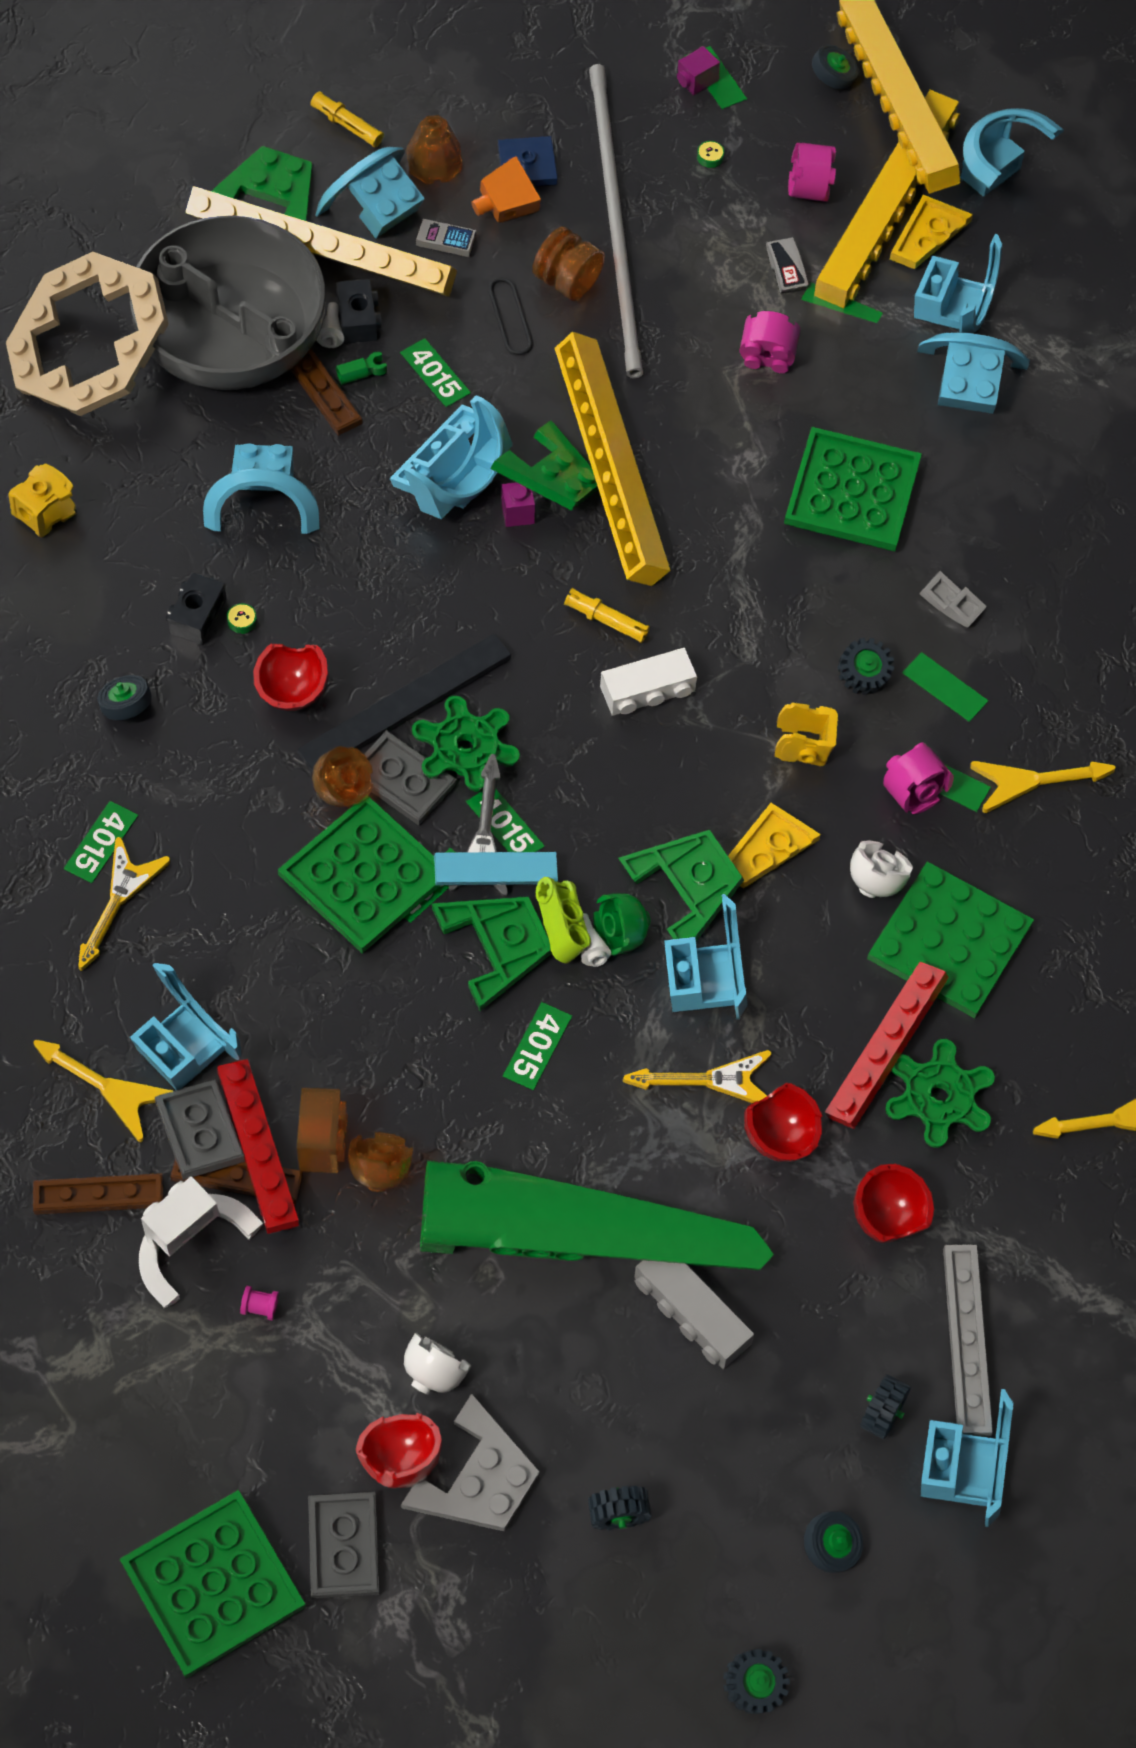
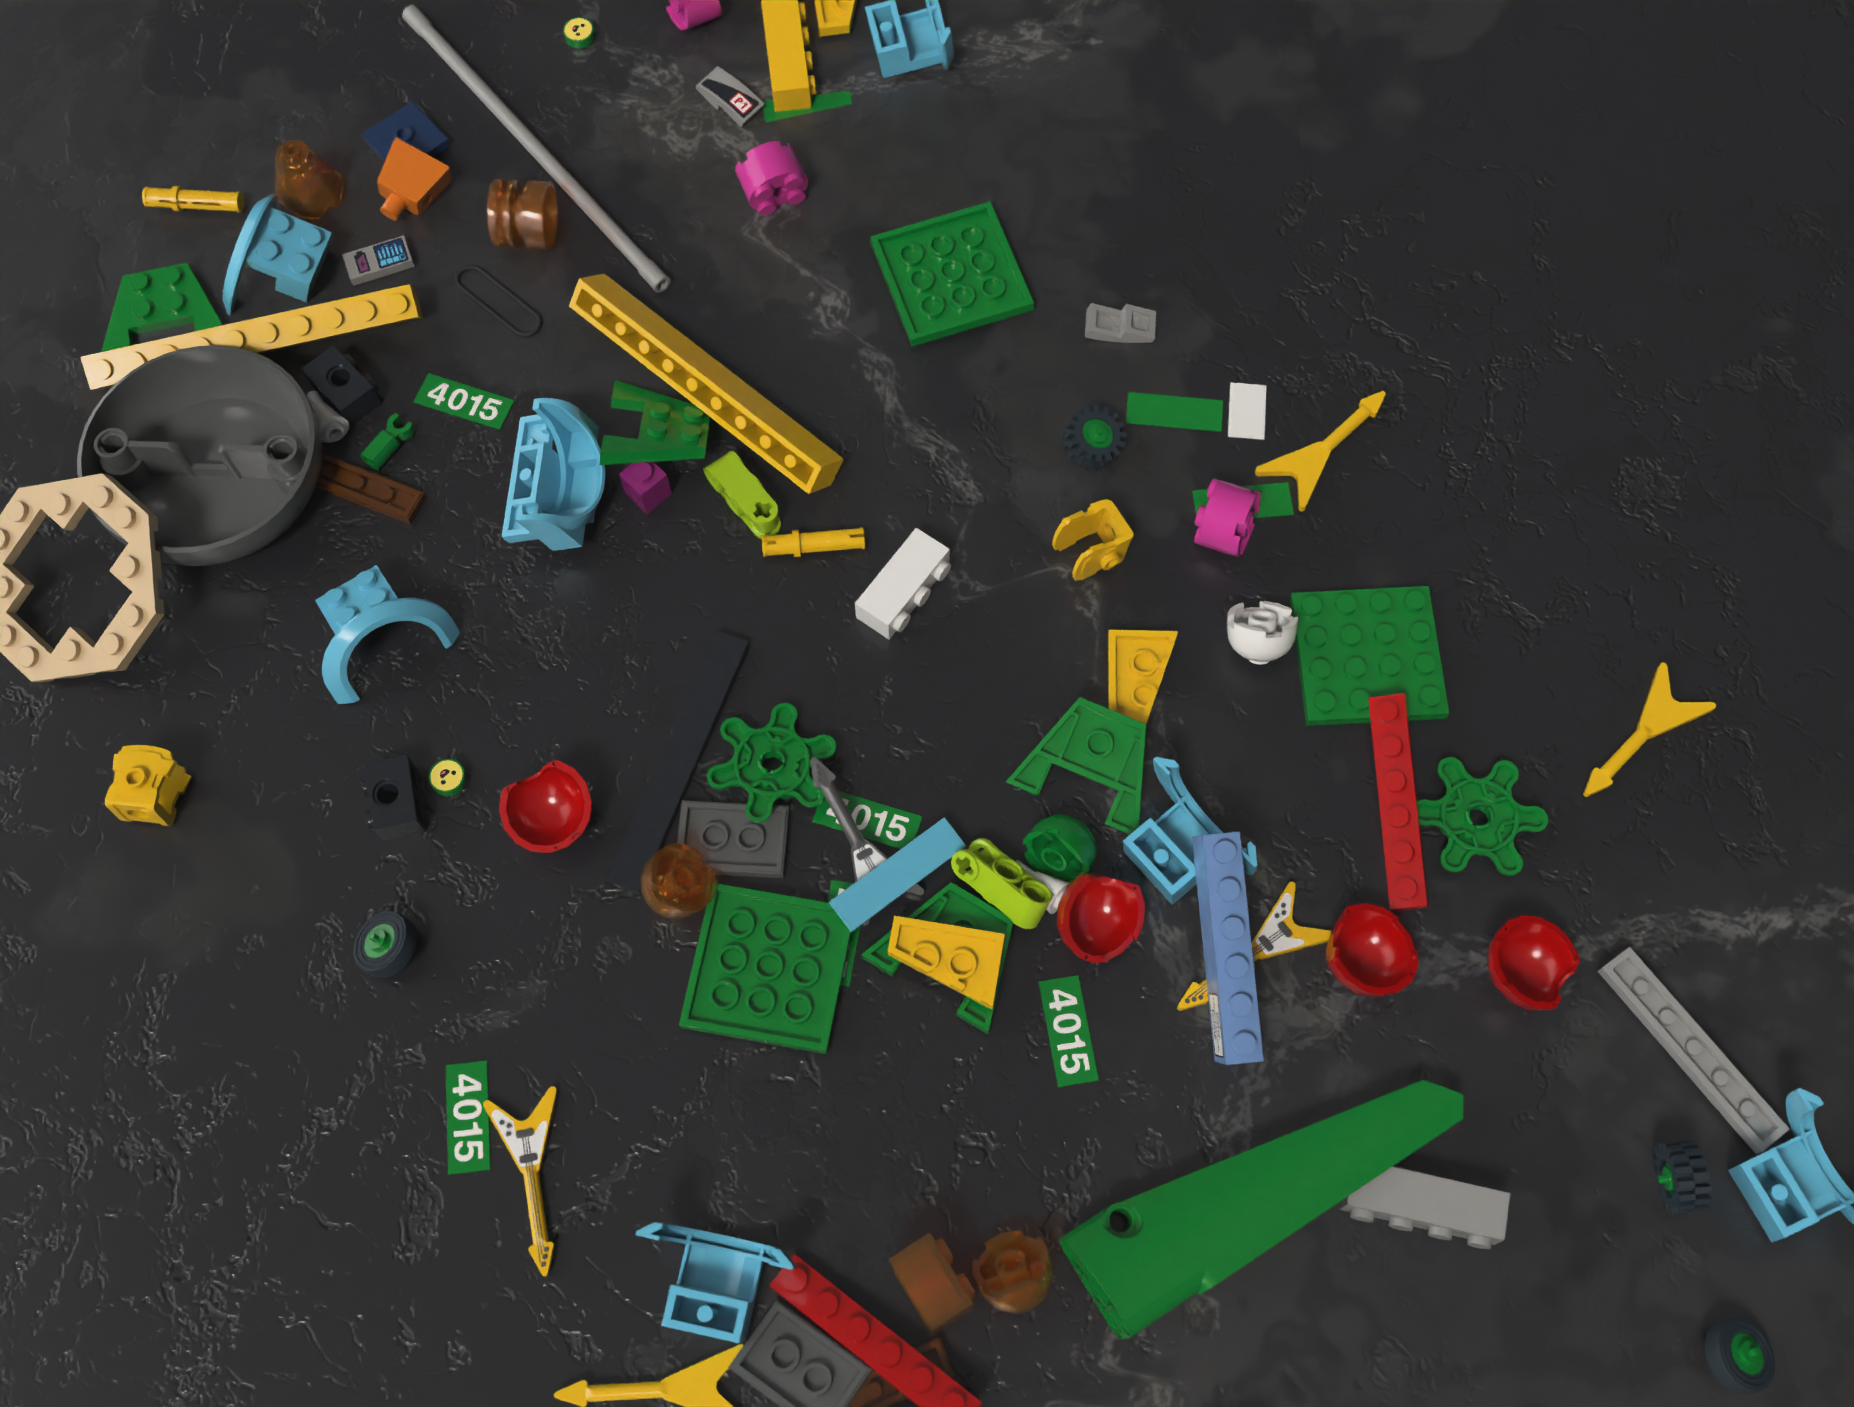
camera: 30 degrees left, 5 degrees up
(490, 939) = (951, 955): none -> yellow wing
(582, 553) = (744, 494): none -> lime piece
(611, 980) = (1100, 916): none -> red cylinder
(681, 1052) = (1227, 948): none -> medium blue brick
(972, 368) = (980, 92): medium azure piece -> none
(1000, 718) = (1247, 411): none -> white sticker

